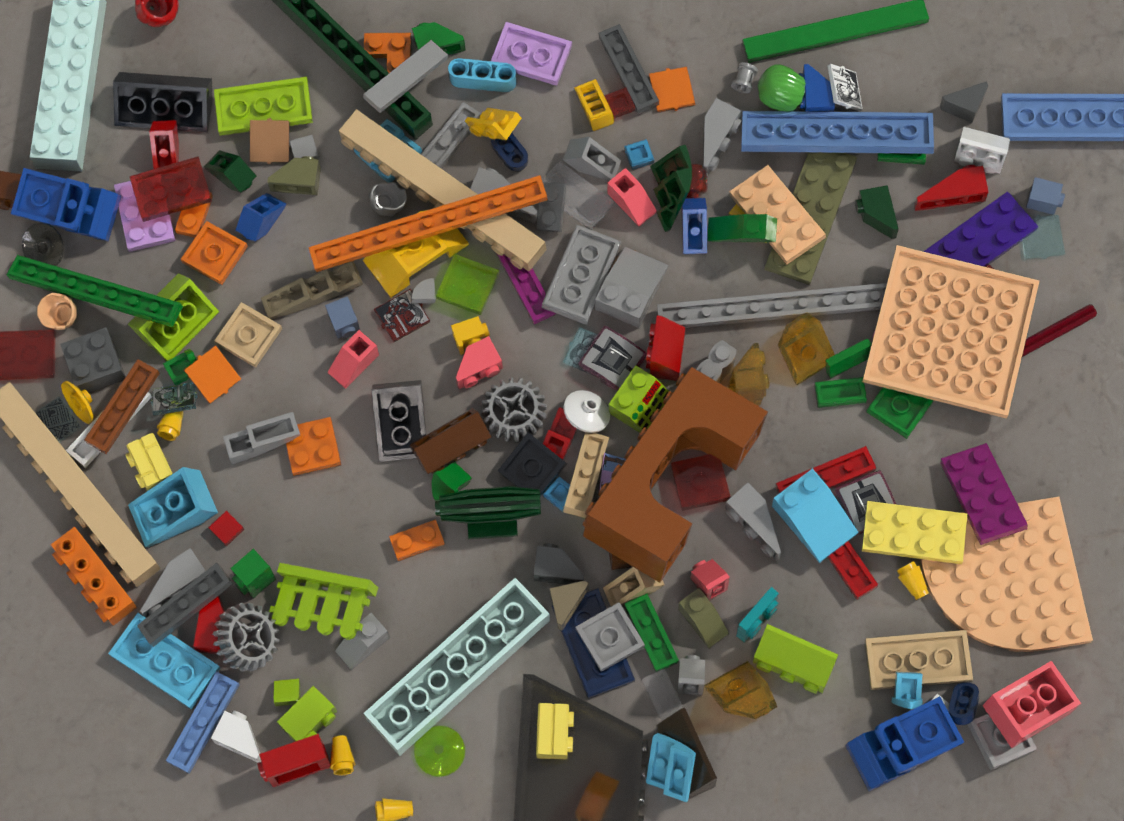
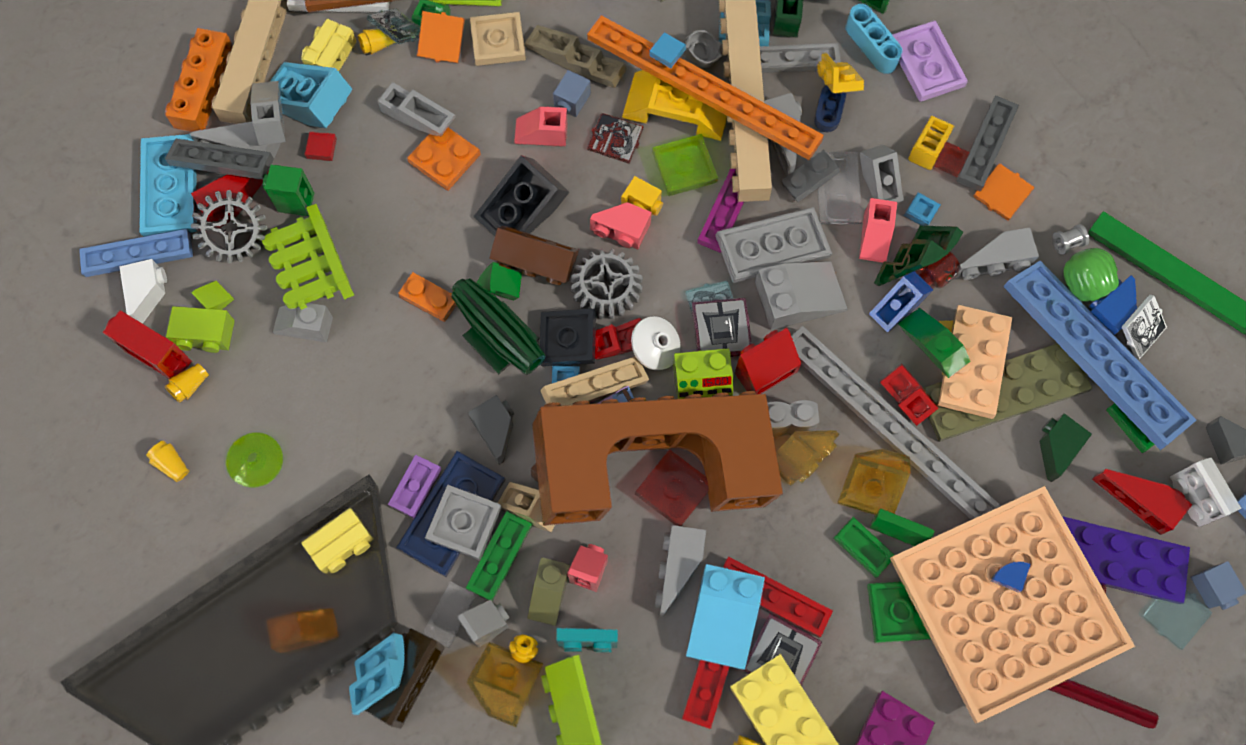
camera: 45 degrees right, 0 degrees up
(177, 540) = (267, 113): none -> light grey slope
(381, 224) = (667, 50): none -> dark azure tile
(424, 292) = (648, 137): light grey tile -> none
(457, 666) = (334, 413): light aqua brick -> none
(554, 653) = (414, 486): none -> medium lavender plate
(566, 600) = (464, 459): dark tan slope -> none
(728, 664) = (520, 653): none -> yellow plate
(763, 276) = (909, 394): none -> red slope
(936, 315) = (1012, 576): none -> blue tile

